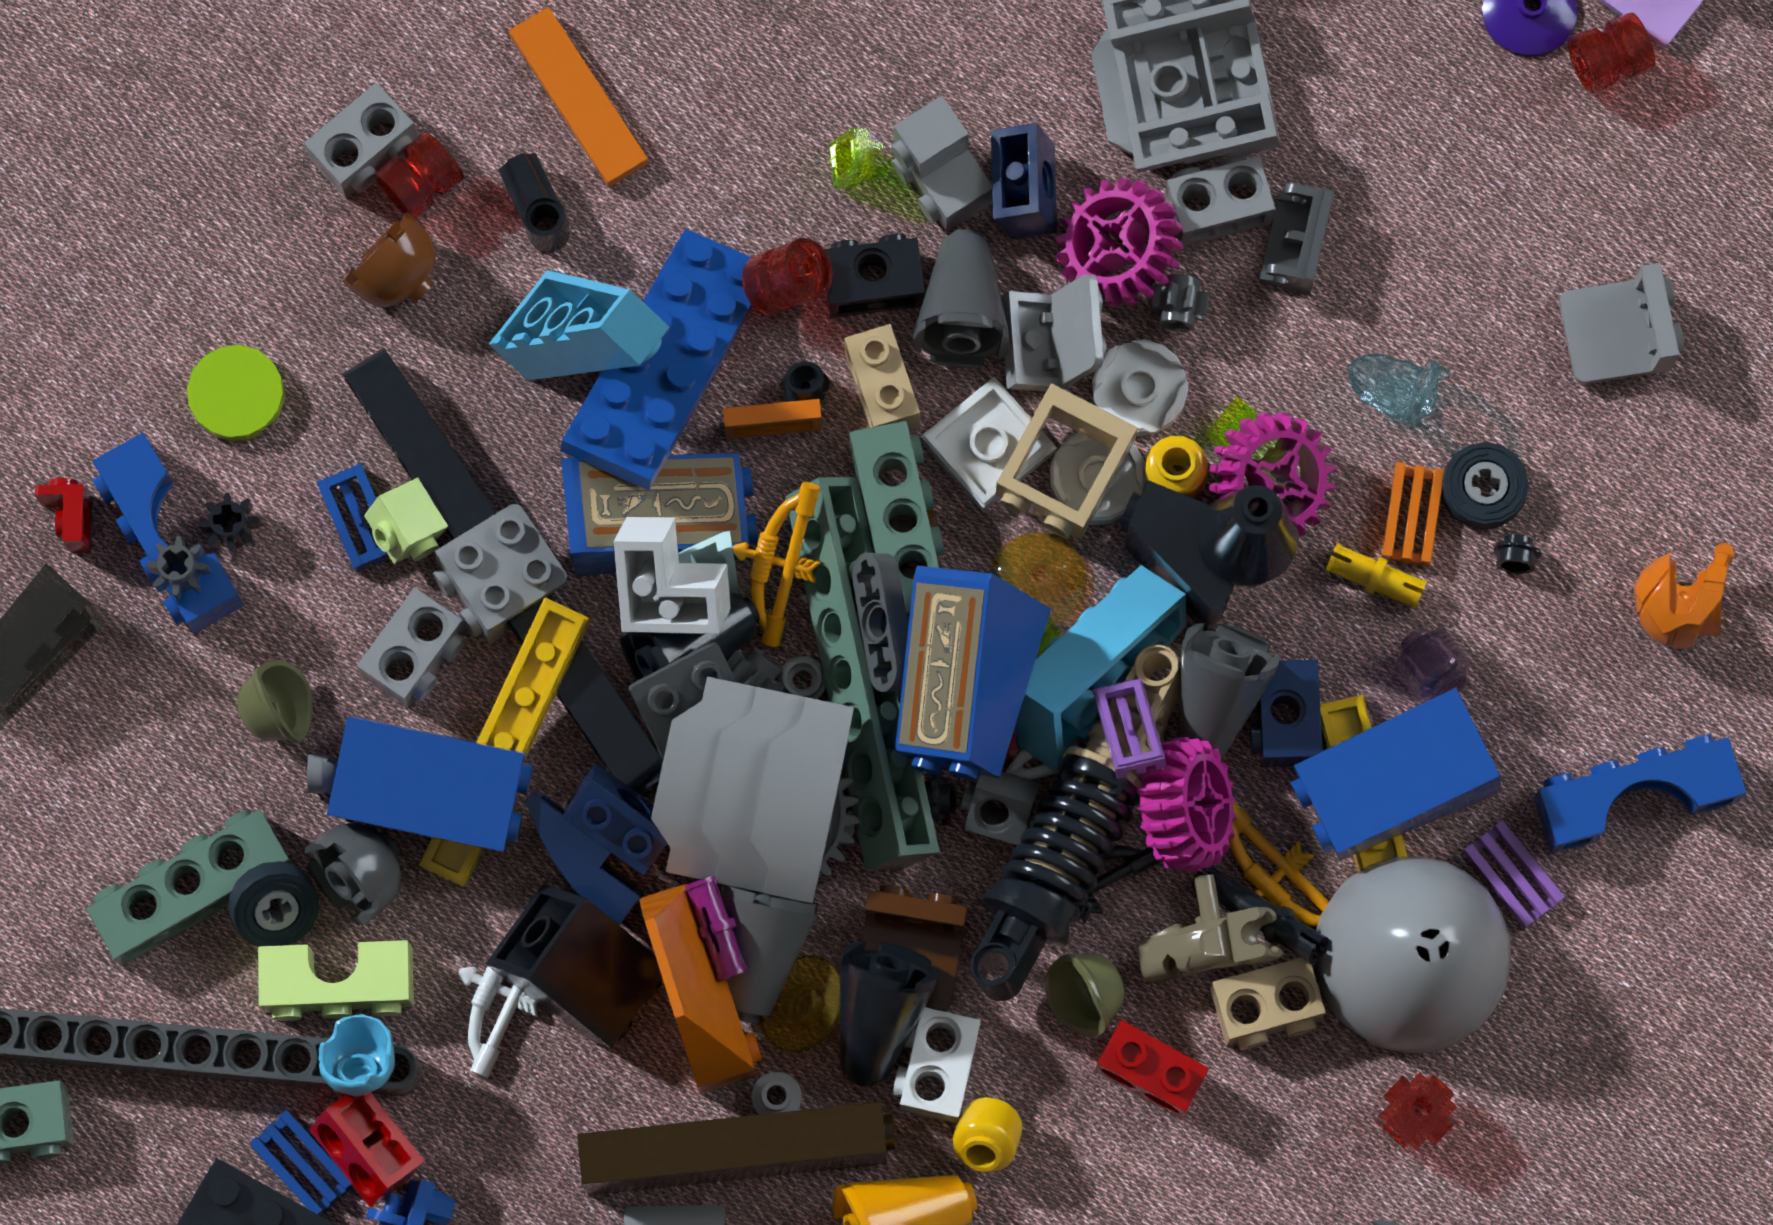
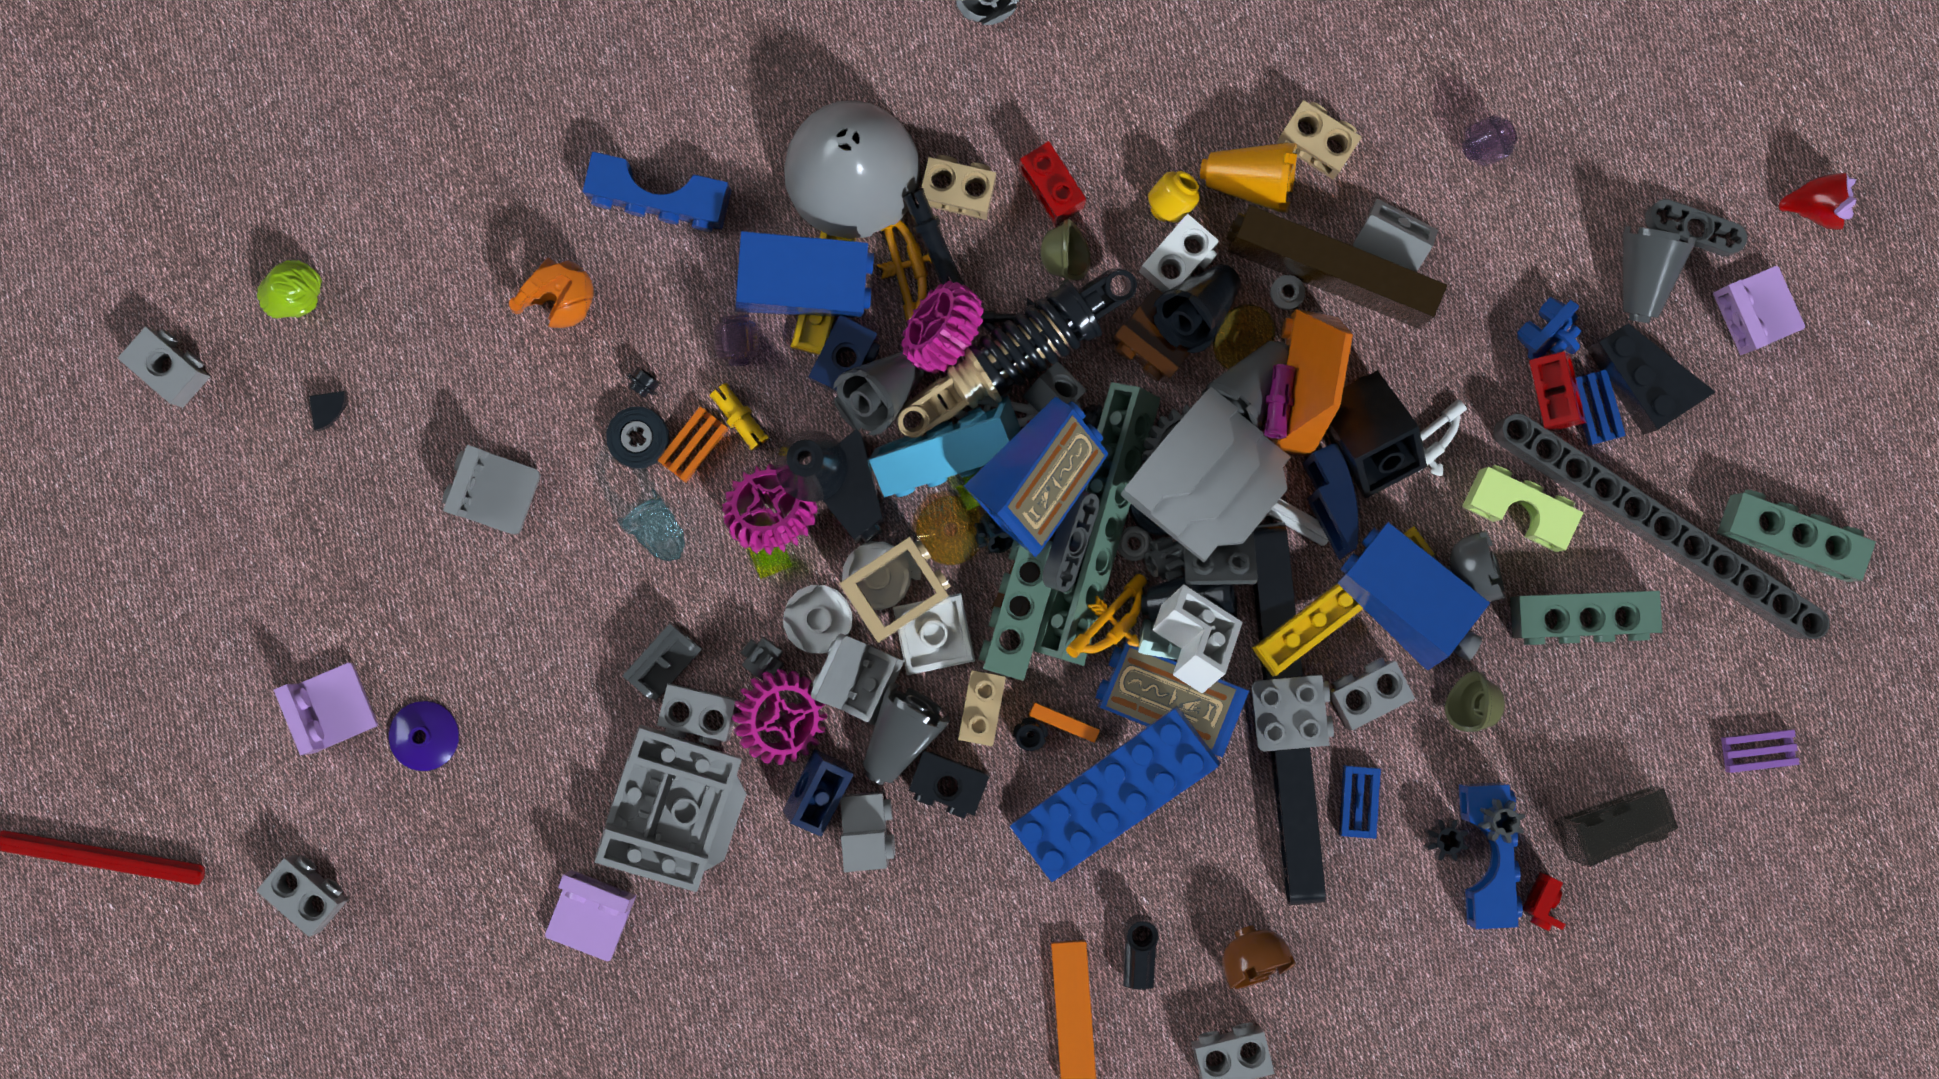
camera: 155 degrees left, 10 degrees up
(235, 393) = (1397, 928): lime tile -> none
(252, 898) = (1527, 570): black bush -> none
(357, 1055) = (1544, 441): medium azure hair -> none
(406, 522) = (1335, 777): yellowish green brick -> none
(414, 180) = (1208, 1011): clear red wheel -> none
(578, 328) = (1164, 842): medium azure wedge -> none
(616, 819) = (1304, 510): dark blue brick -> none
(787, 276) = (1006, 808): clear red wheel -> none
(853, 158) = (918, 870): clear neon green tile -> none
(1138, 760) = (962, 357): medium lavender tile -> none
(1177, 454) = (814, 543): yellow head -> none
(1209, 943) = (975, 237): dark tan piece -> none
(1404, 1124) = (906, 71): clear red brick -> none
(1529, 864) = (758, 158): medium lavender tile -> none
(1618, 50) = (393, 674): clear red wheel -> none

